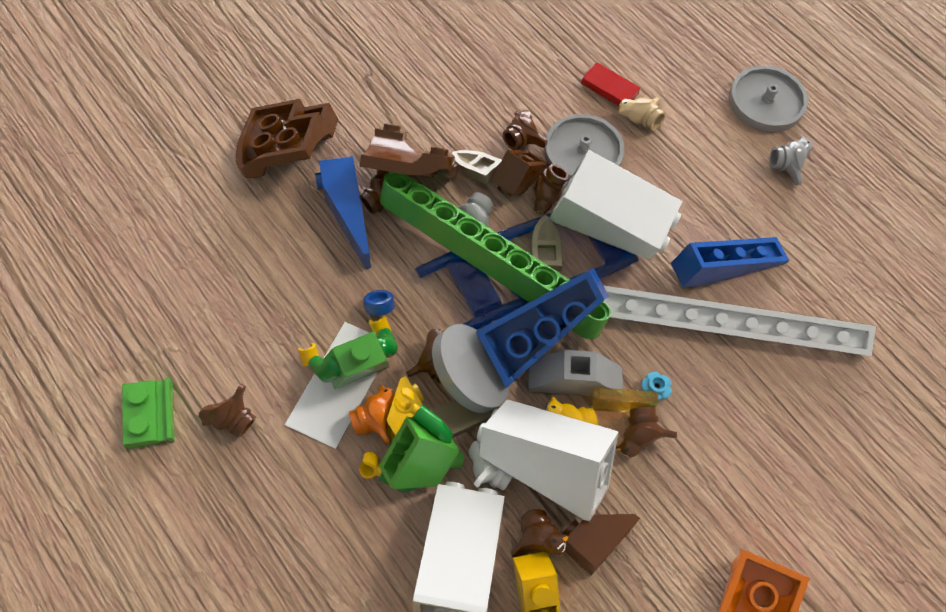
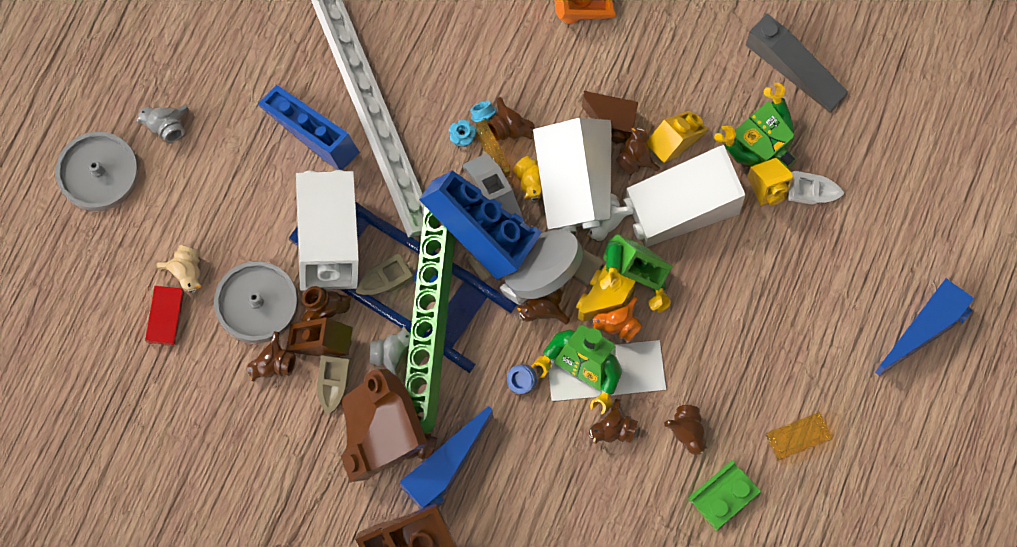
camera: 115 degrees left, 10 degrees up
(145, 518) = (798, 436): none -> clear yellow tile
(280, 351) = (614, 426): none -> reddish brown animal
(669, 415) = (482, 111): none -> medium azure plate

